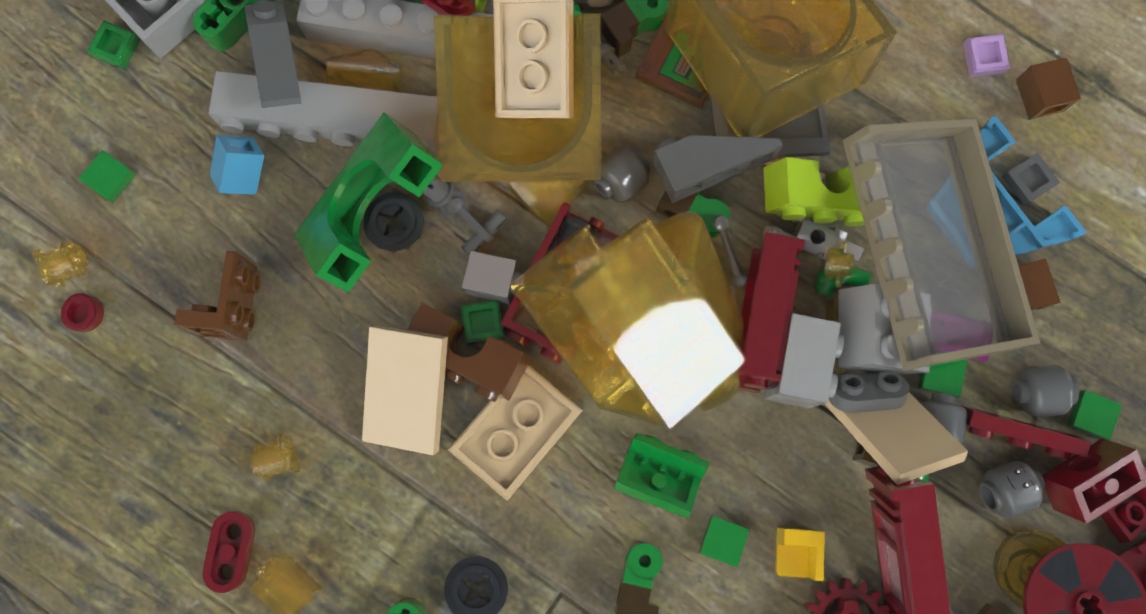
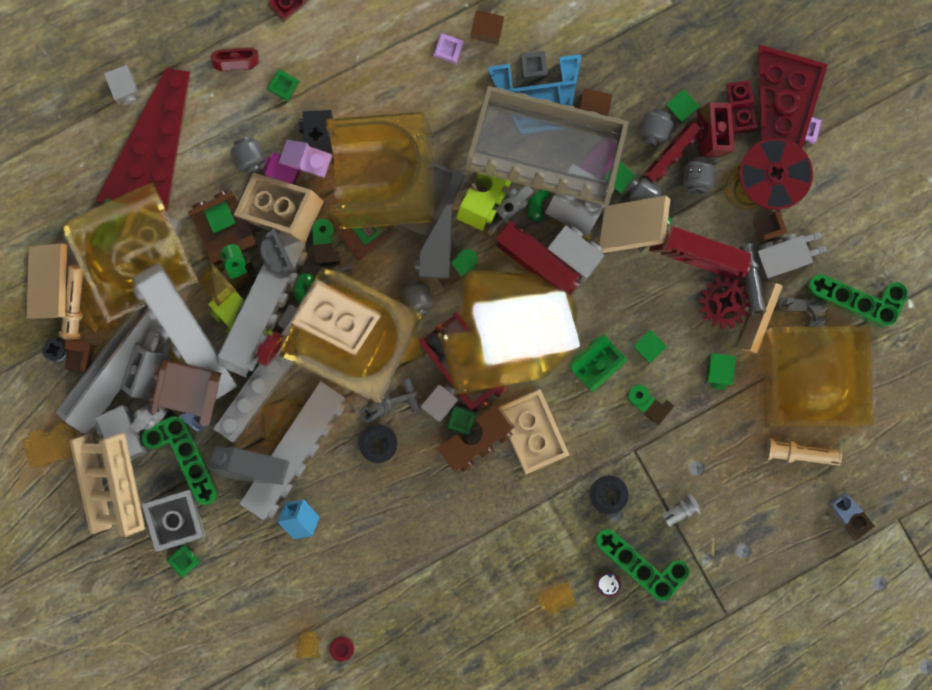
camera: 65 degrees left, 5 degrees up
(107, 176) = (266, 599): green tile -> none
(226, 549) = (522, 621): dark red plate -> none
(234, 311) = (391, 570): reddish brown bracket -> none
(274, 458) = (482, 573): clear yellow brick -> none
(332, 227) = (366, 478): green arch -> none
(404, 389) = (481, 481): tan tile -> none
(721, 223) = (474, 258): dark grey hinge -> none
(800, 553) = (676, 309): yellow panel -> none
(839, 264) = (530, 204): clear yellow plate -> none
(870, 392) = (609, 226): dark grey plate -> none

